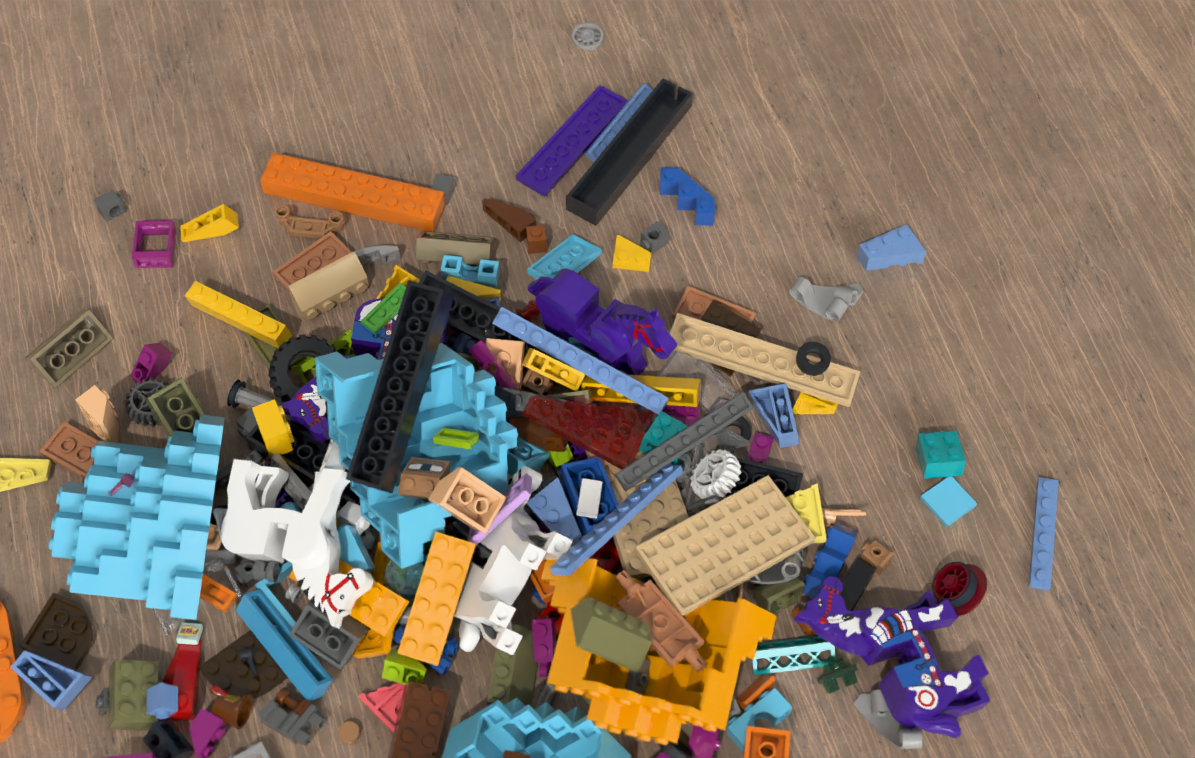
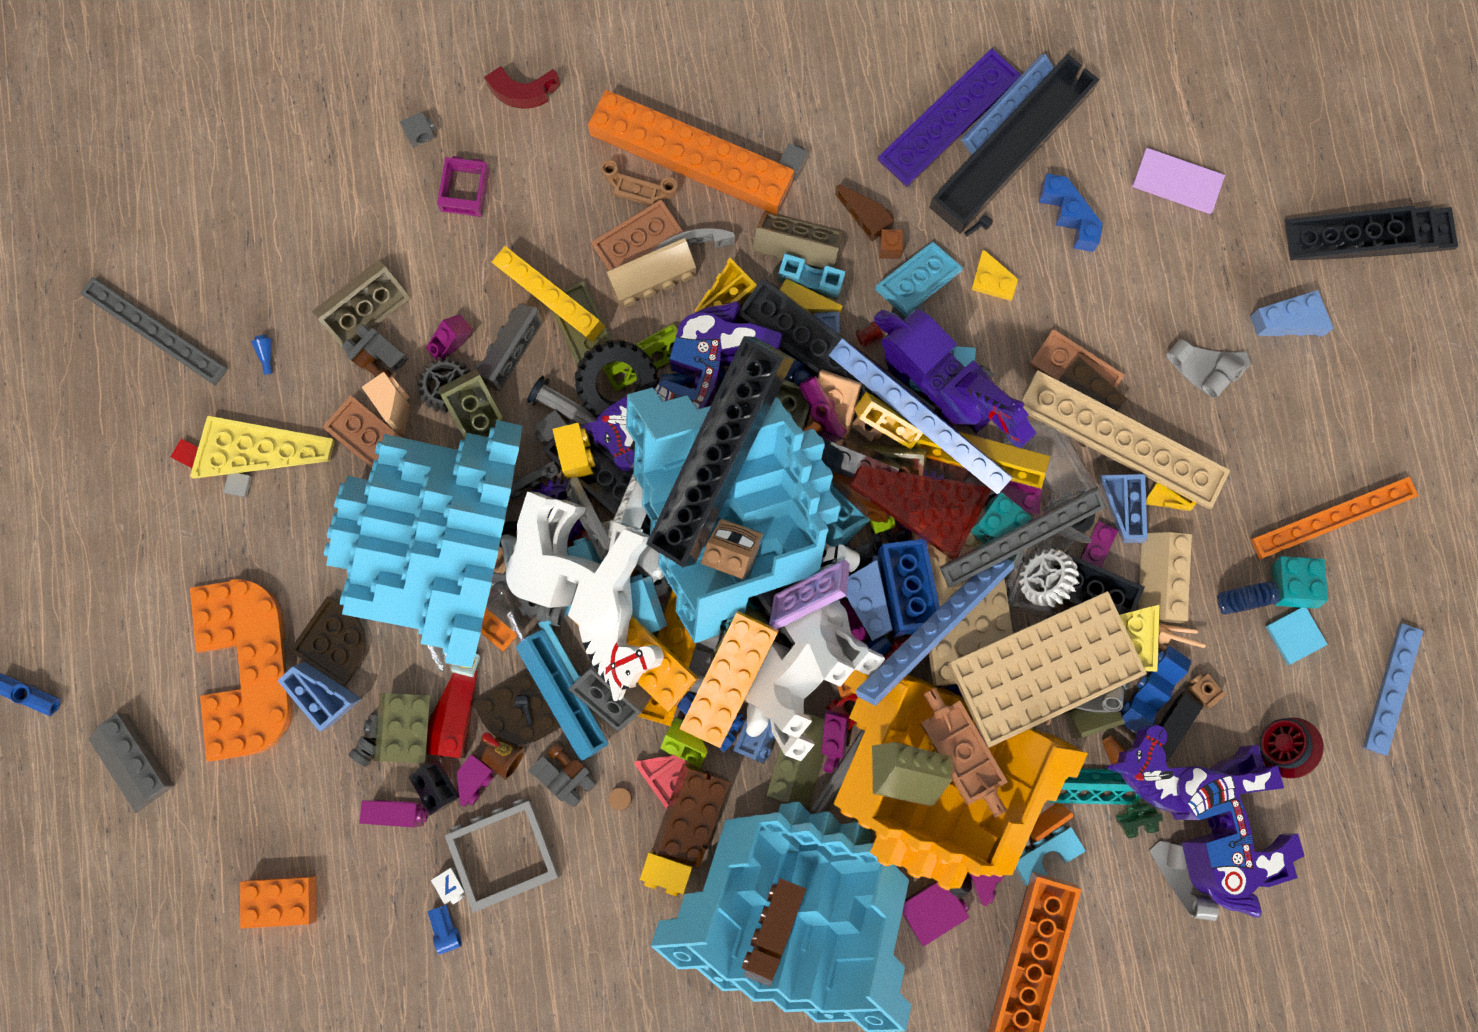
camera: 10 degrees right, 20 degrees up
(80, 380) = (370, 349): none -> dark grey hips
(97, 725) = (363, 751): none -> dark grey wheel
(126, 480) = (409, 497): clear pink hand -> none
(162, 700) = (430, 745): medium blue brick -> none
(199, 168) = (521, 94): none -> dark red arch
(209, 360) = (509, 346): none -> dark grey slope
(210, 224) = (529, 170): yellow slope -> none
(294, 592) = (577, 643): light grey bush -> none
(385, 310) = (715, 327): bright green tile -> none
(404, 580) = (696, 653): clear light blue tile -> none
(456, 438) = (772, 504): lime tile -> none
(468, 499) = (775, 590): light nougat slope -> none
(475, 662) = (757, 747): none -> medium blue bracket
(589, 498) = (908, 592): white tile -> none
(614, 213) = (984, 222): none -> black hand
(638, 680) = (926, 816): dark grey plate -> none
(654, 231) = (1027, 253): dark grey brick -> none
(775, 162) = (1178, 181): none -> lavender tile
(805, 366) = (1193, 444): black tyre -> none
(822, 464) = (1166, 575): none -> tan slope
(896, 471) = (1248, 598): none -> dark blue gear
(944, 180) = (1371, 233): none -> black slope
(960, 401) = (1334, 518): none -> orange plate

